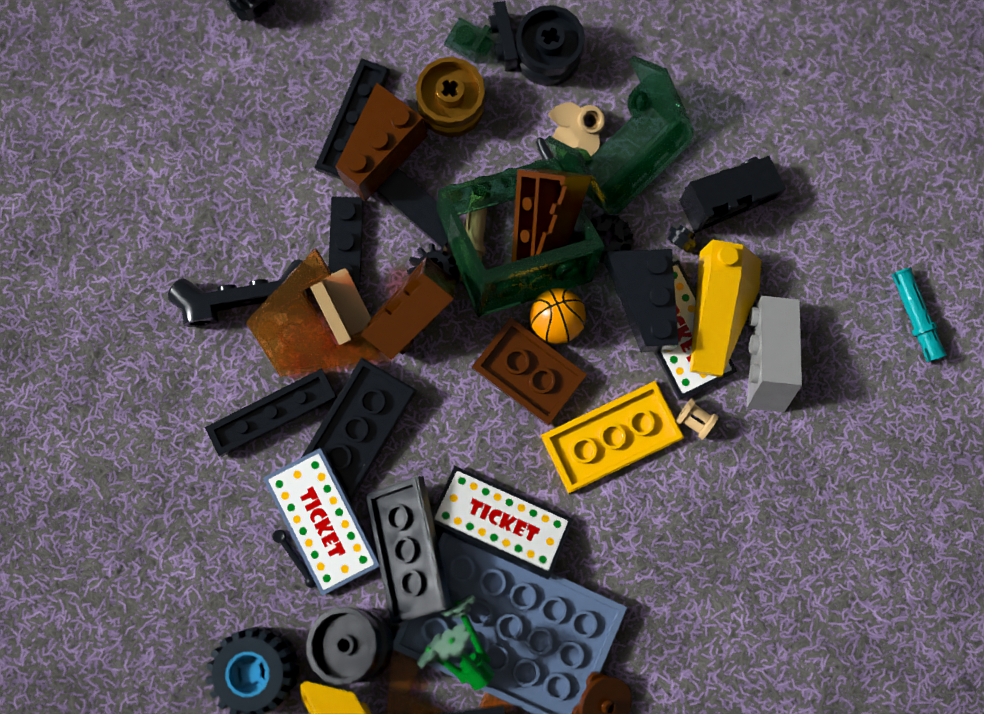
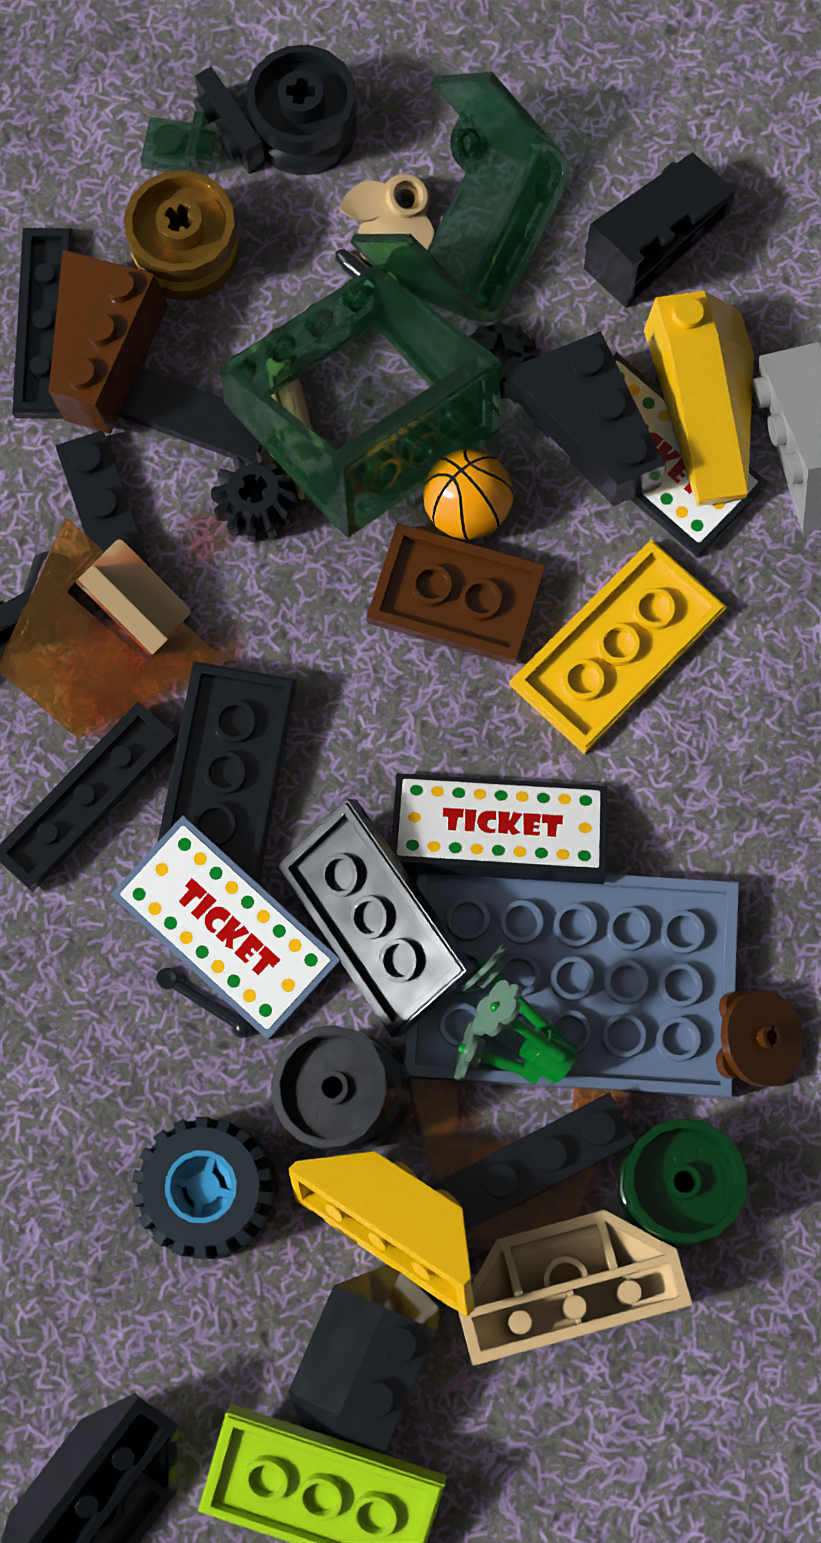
camera: 15 degrees left, 5 degrees down
(410, 309) = (242, 560): reddish brown wedge -> none
(546, 210) = (391, 338): reddish brown wedge -> none
(682, 238) = (610, 318): black plate -> none
(701, 428) = (734, 571): tan bush -> none

